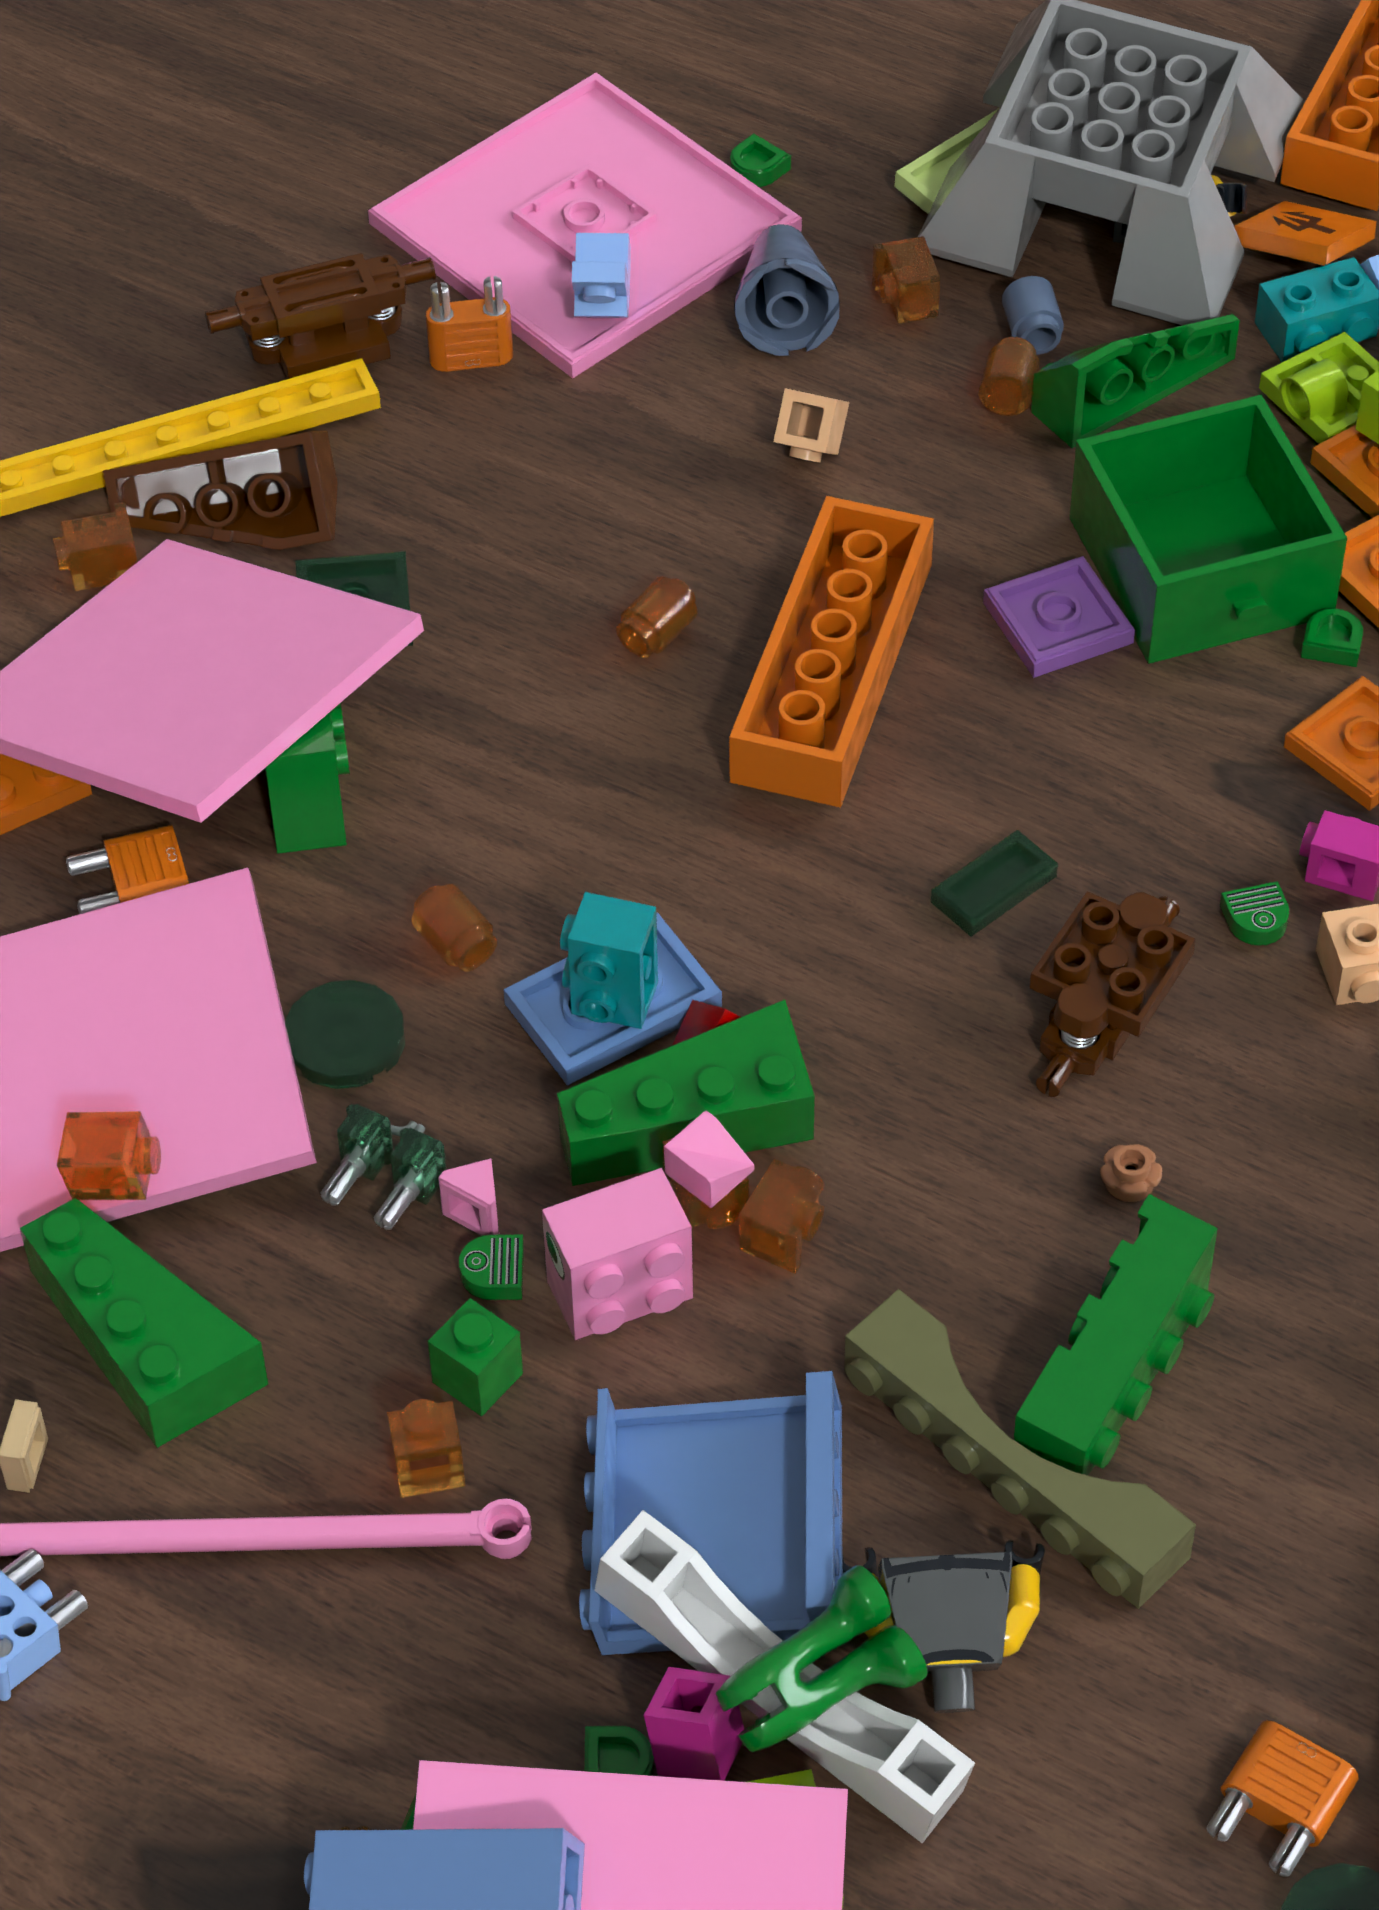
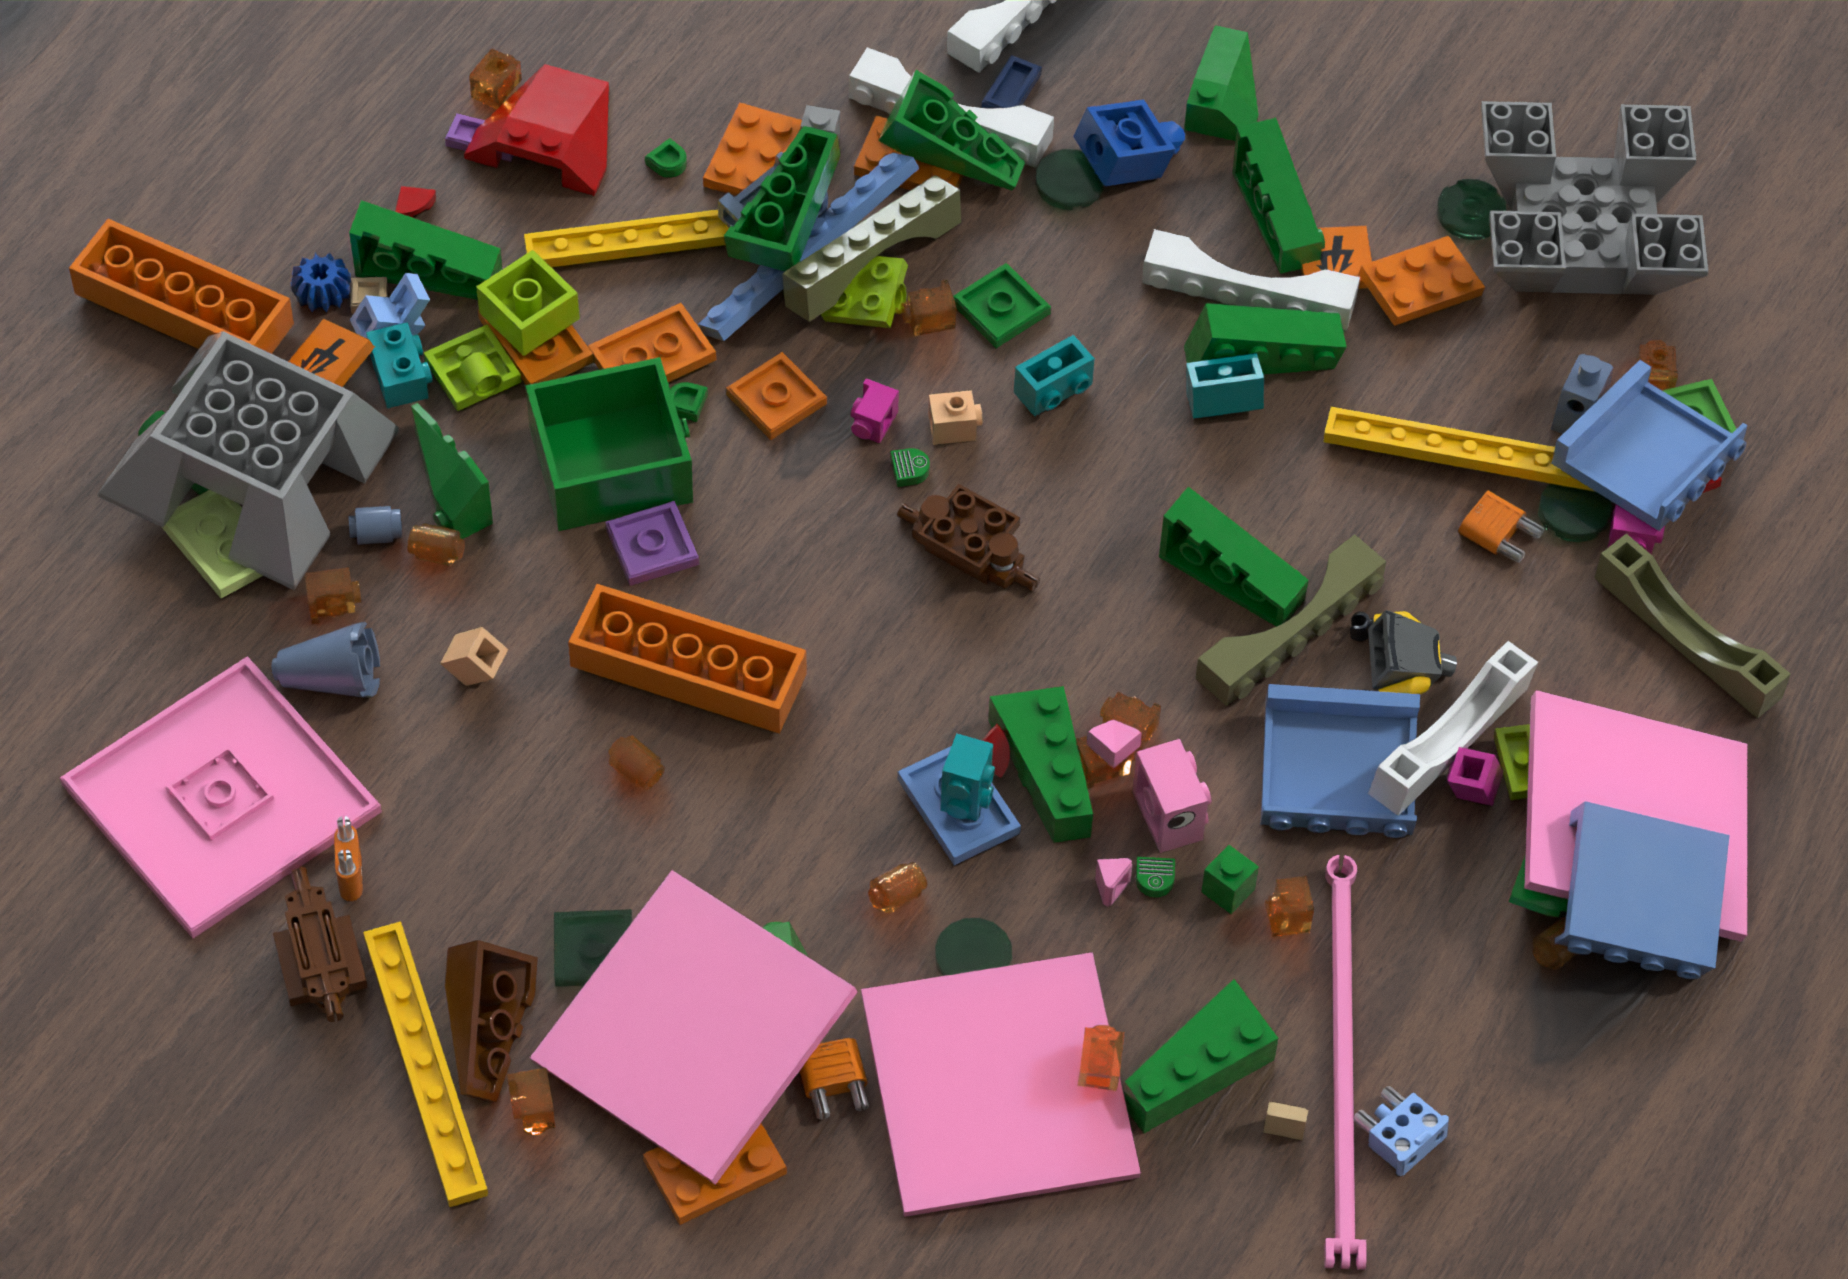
camera: 90 degrees left, 5 degrees up
(368, 1145) = (1085, 915): clear green piece -> none
(602, 275) = (315, 771): light blue brick -> none
(617, 1751) = (1483, 827): green tile -> none
(759, 161) = (174, 682): green tile -> none
(883, 1658) = (1441, 687): green piece -> none
(994, 883) = (874, 598): clear green tile -> none
(1130, 1184) = (1099, 557): nougat plate -> none

